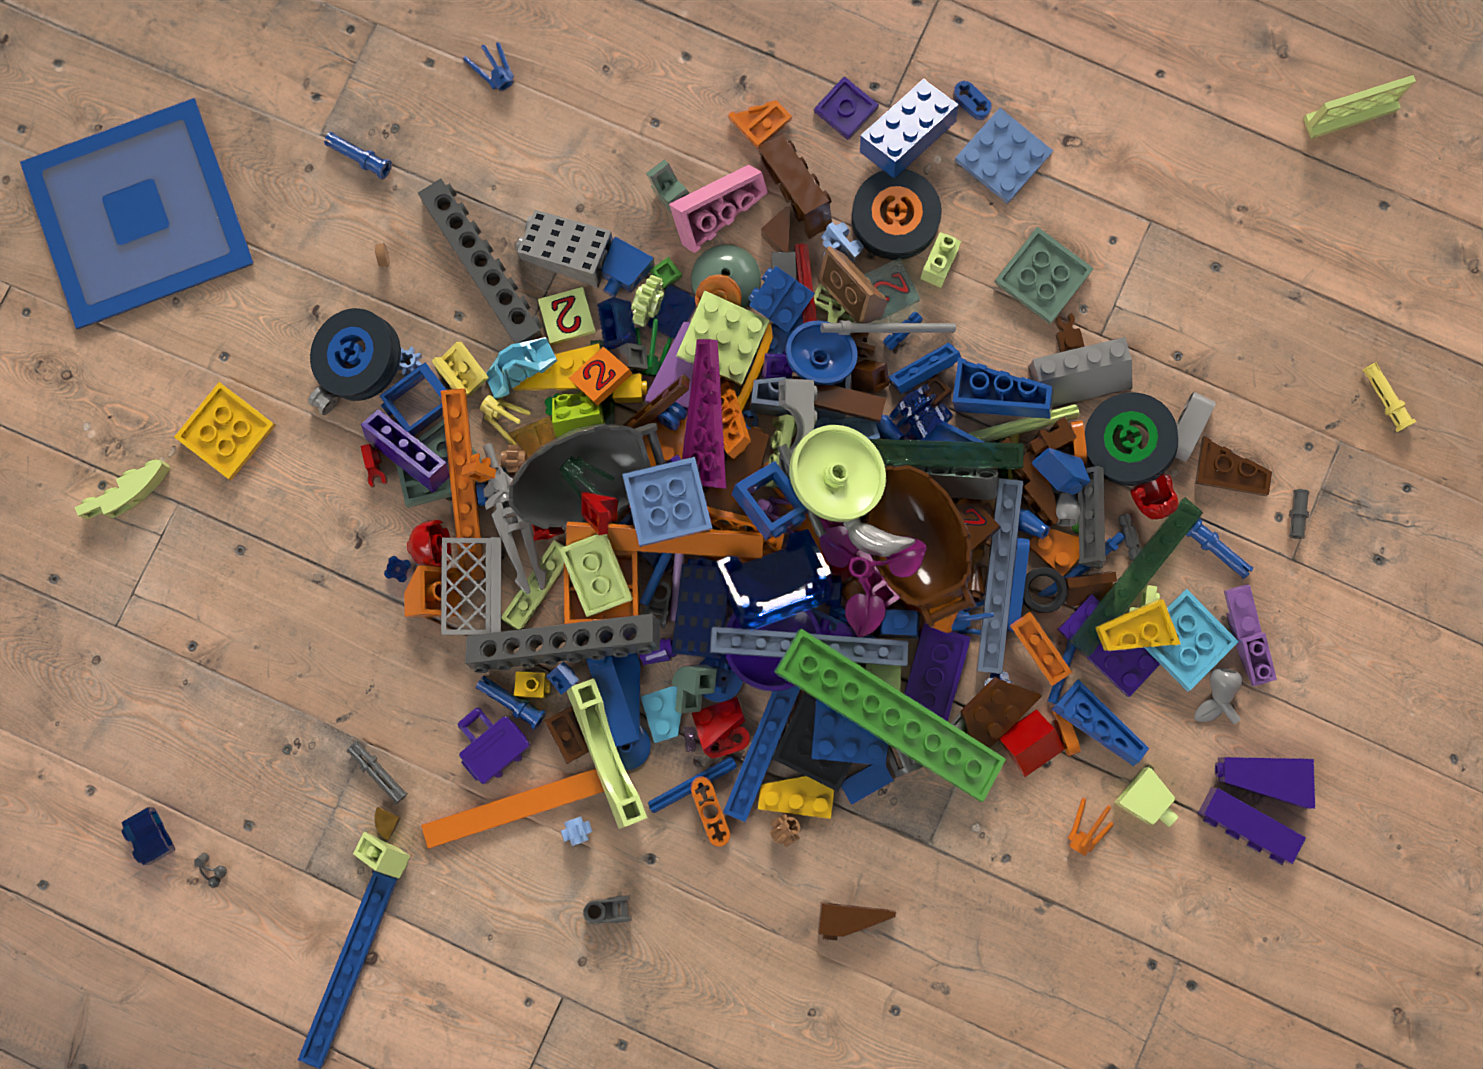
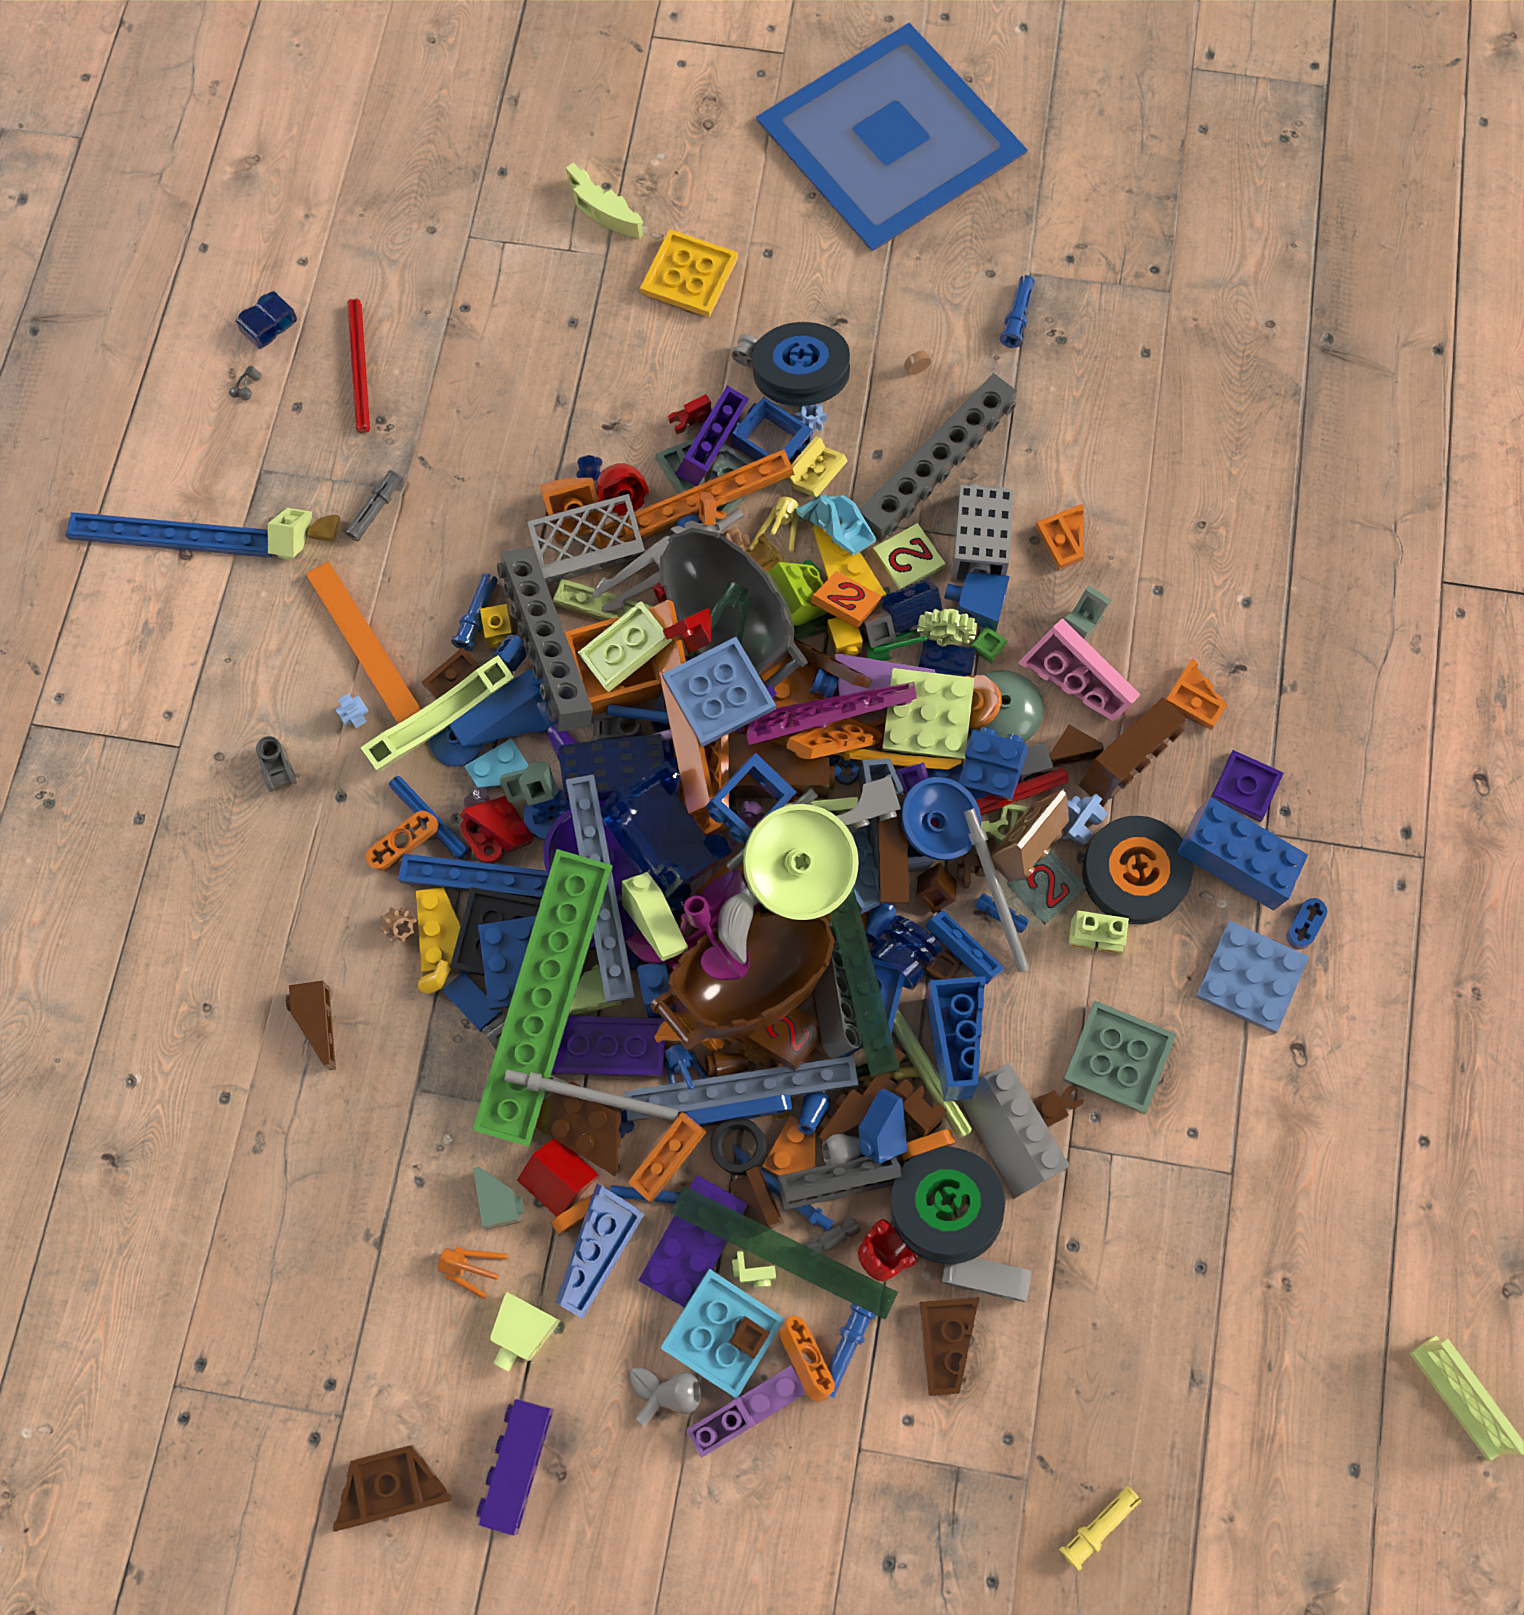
camera: 75 degrees right, 10 degrees down
(224, 758) = (358, 366): none -> red axle
(493, 749) = (422, 608): dark purple piece -> none
(501, 77) = (1152, 421): blue plant -> none
(586, 182) = (1064, 536): none -> orange wing
(843, 807) = (435, 980): none -> yellow arm
(847, 608) = (652, 915): none -> yellowish green slope
(960, 738) = (535, 1082): none -> light grey bar
(1041, 795) = (496, 1201): none -> sand green slope
(1139, 628) = (718, 1266): yellow wing -> none
(1196, 619) = (749, 1337): none -> reddish brown tile
(1240, 581) = (814, 1376): none -> orange beam
(1244, 931) = (388, 1487): none -> reddish brown wing
(1276, 778) = (580, 1479): dark purple slope -> none
(1299, 514) = (916, 1442): dark grey pin -> none

